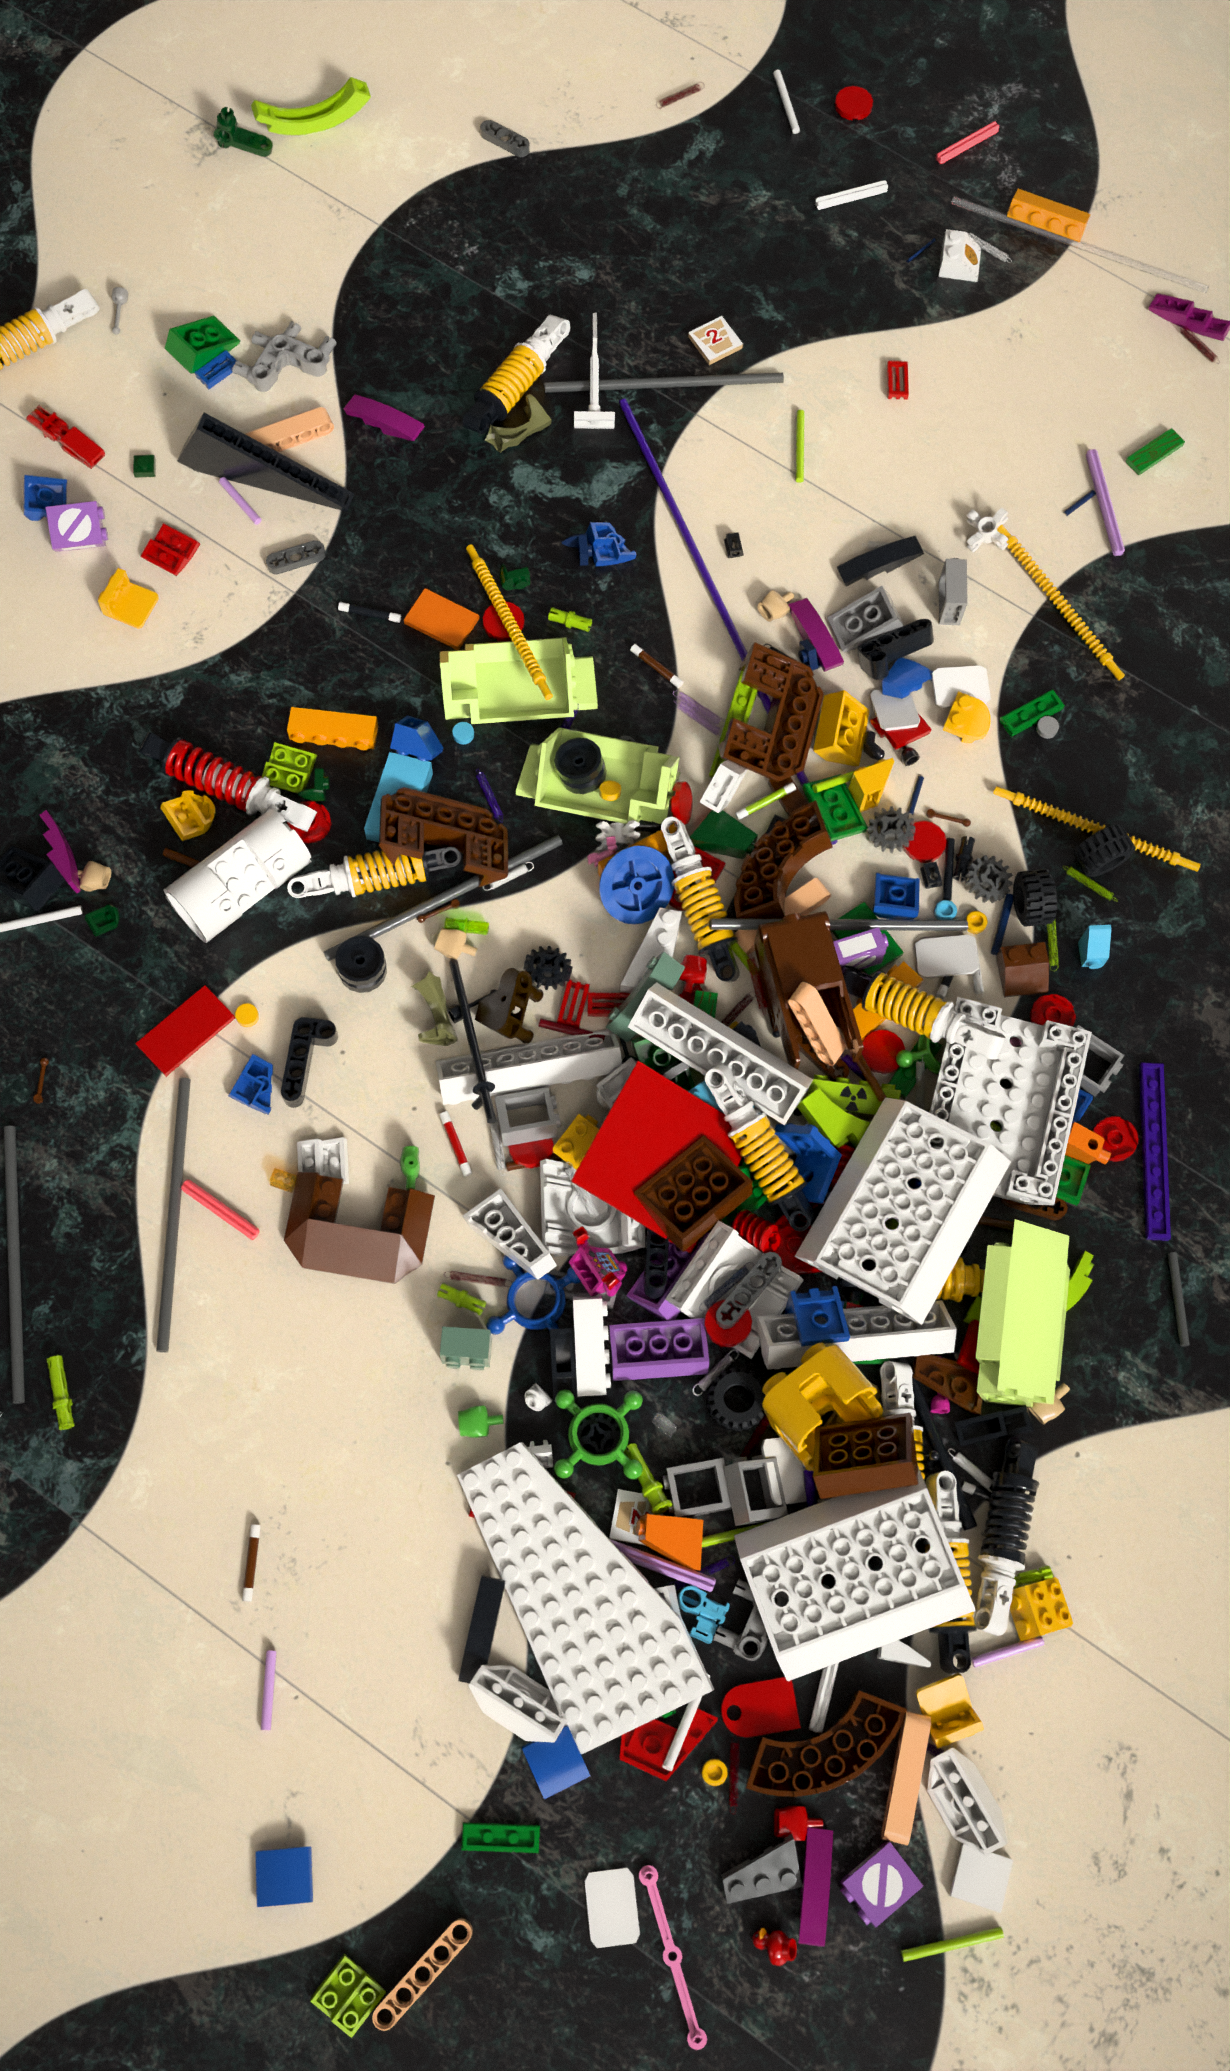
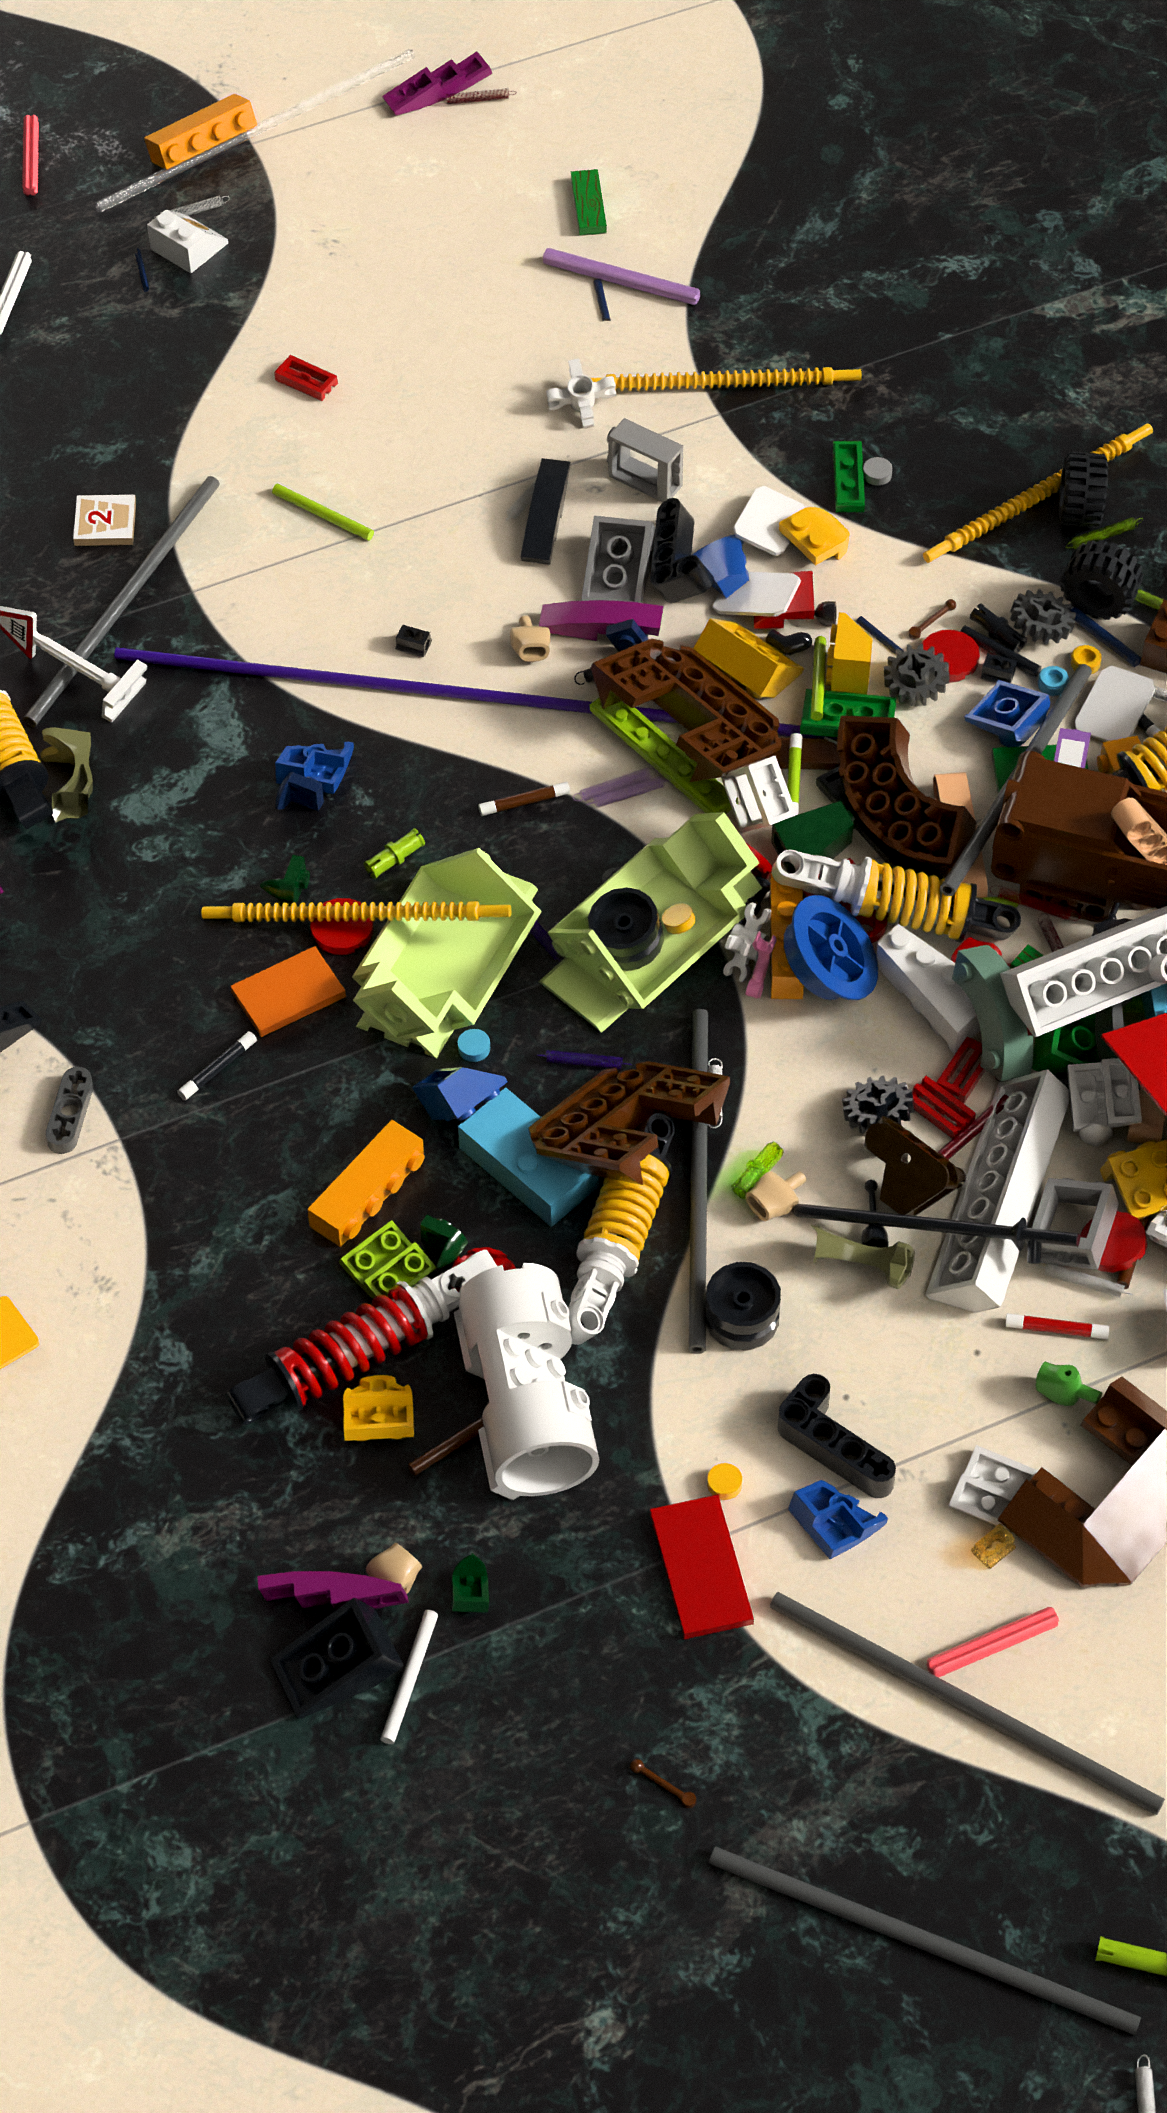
camera: 55 degrees left, 15 degrees down
(454, 904) = (714, 1171): reddish brown hinge -> none

